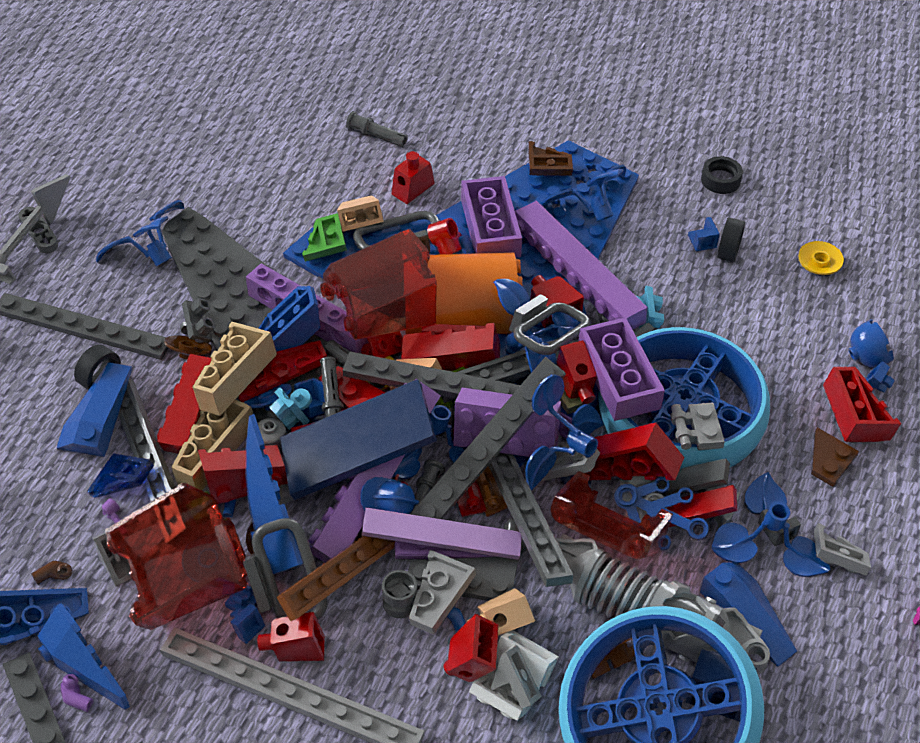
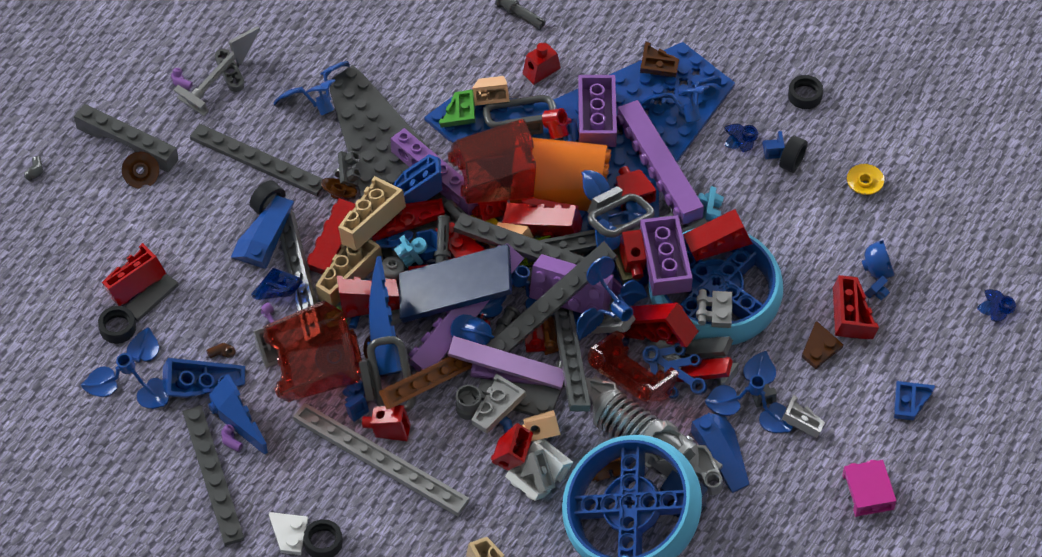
camera: 10 degrees right, 5 degrees up
(662, 230) = (739, 137): none -> clear blue plate
(679, 336) = (718, 236): none -> red wedge

